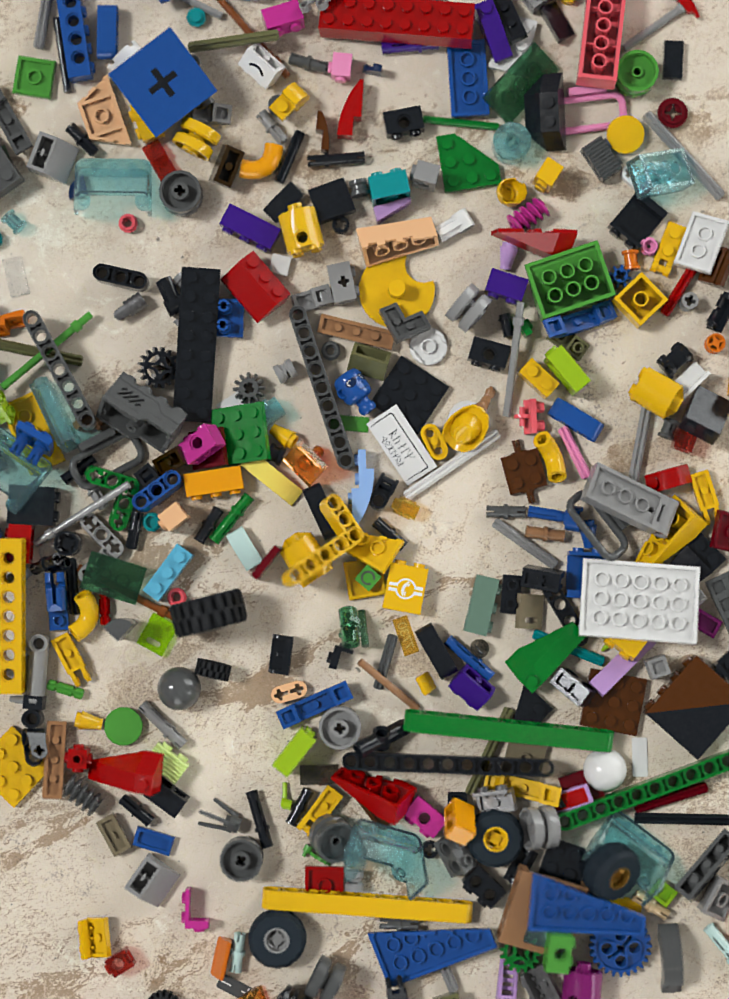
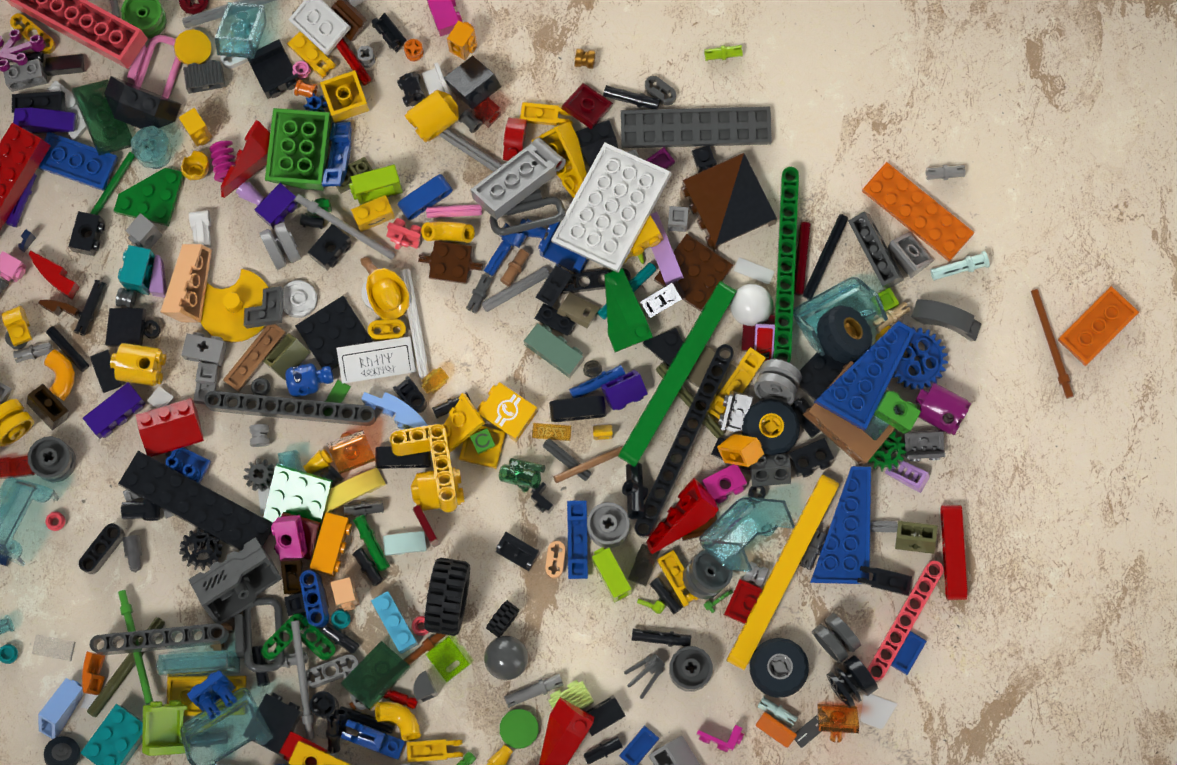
camera: 65 degrees left, 10 degrees down
(252, 486) = (363, 508): none -> dark grey pin

